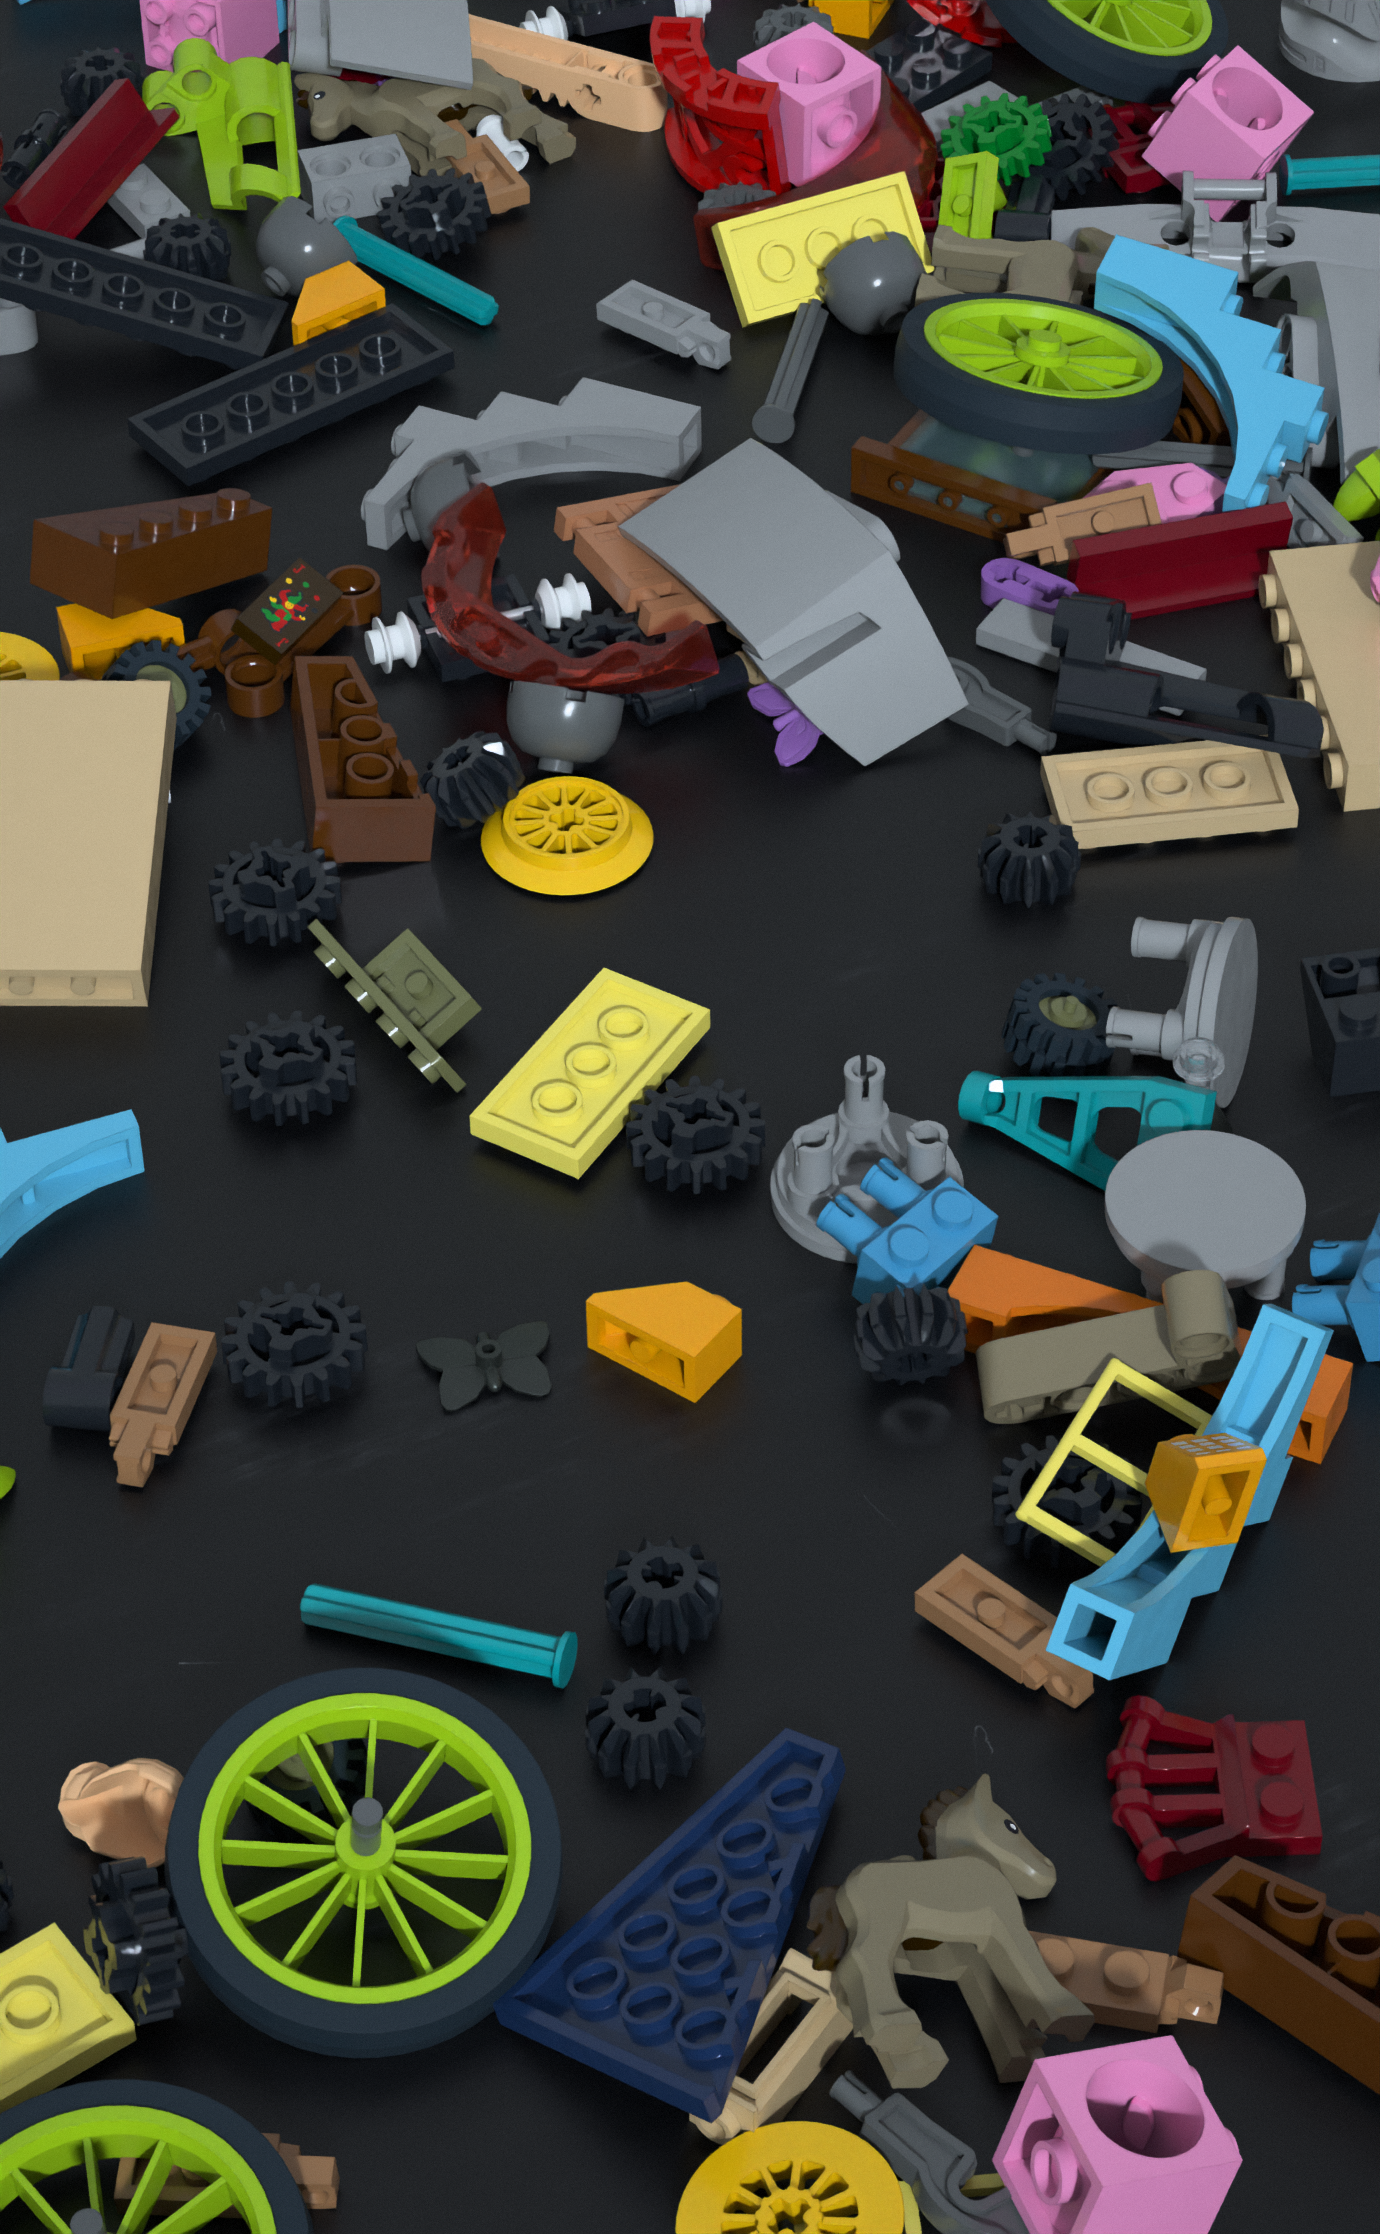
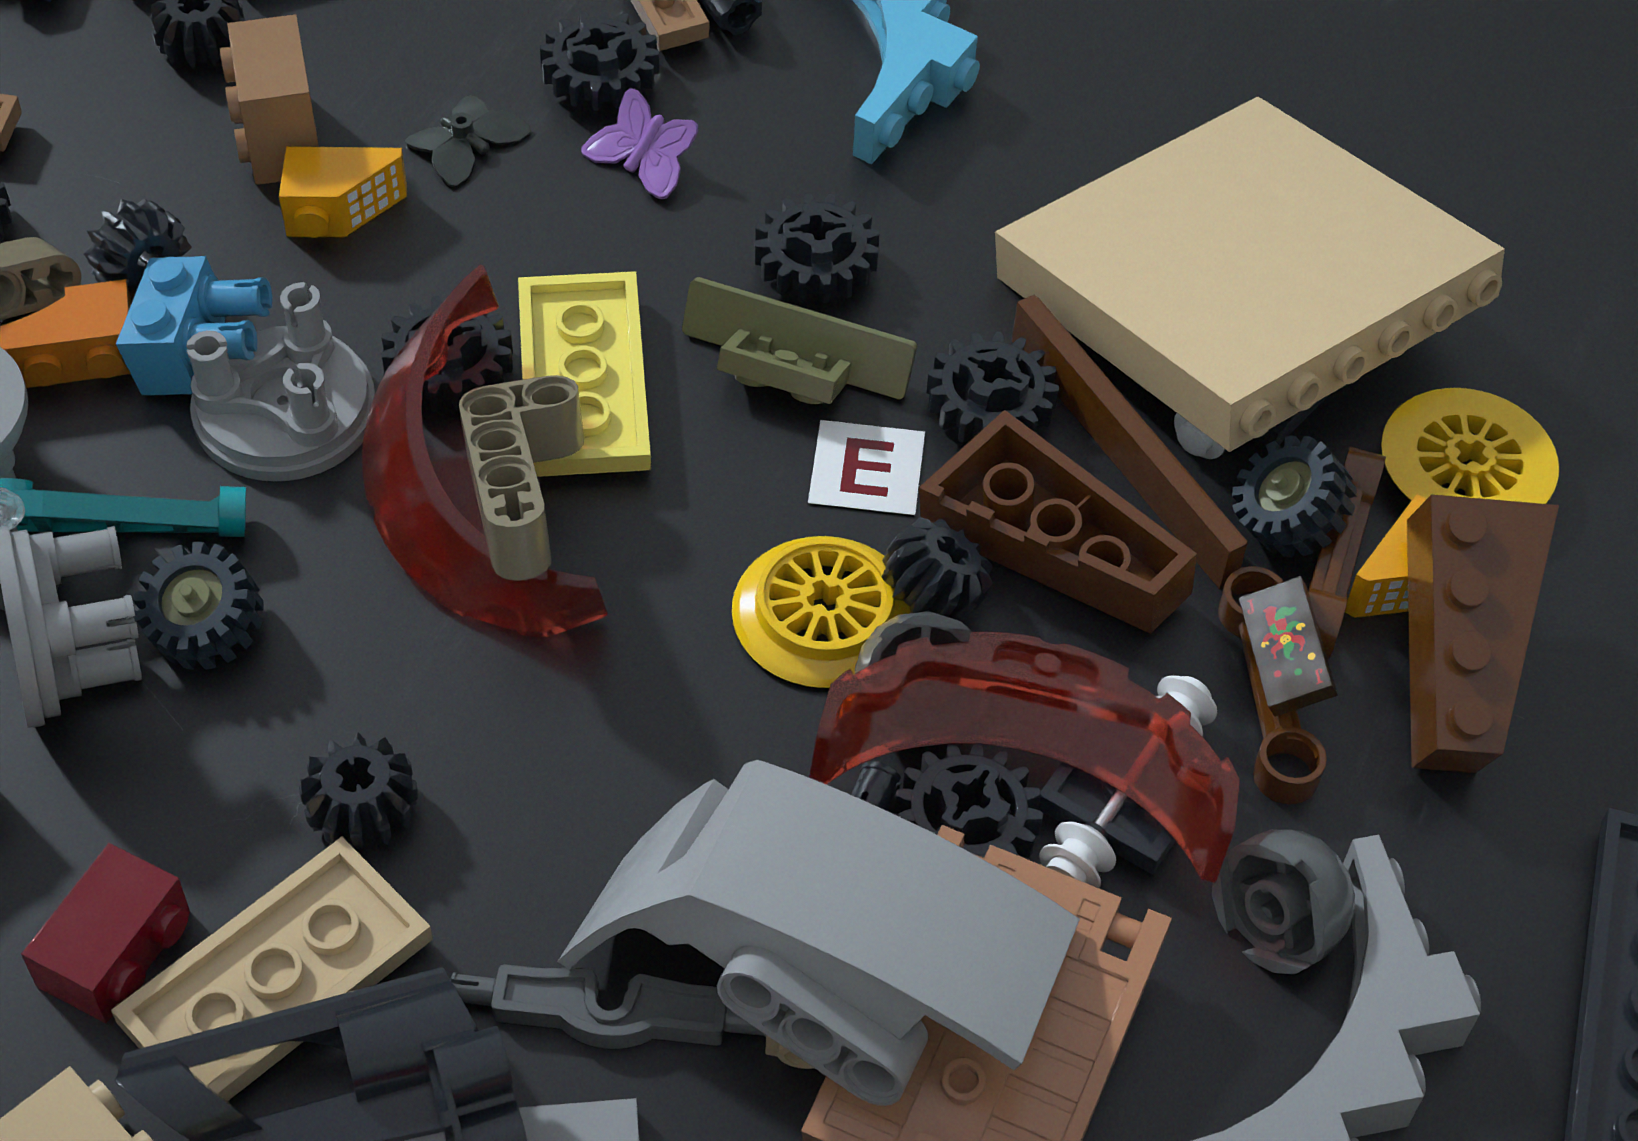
camera: 140 degrees right, 10 degrees up
(213, 814) = (1132, 444): none -> reddish brown tile
(332, 1251) = (644, 142): none -> medium lavender piece
(431, 911) = (867, 467): none -> white sticker
(666, 1413) = (268, 93): none -> medium nougat brick
(750, 924) = (504, 434): none -> dark tan beam
(782, 1047) = (420, 520): none -> clear red windscreen
(1273, 859) = (107, 933): none -> dark red brick

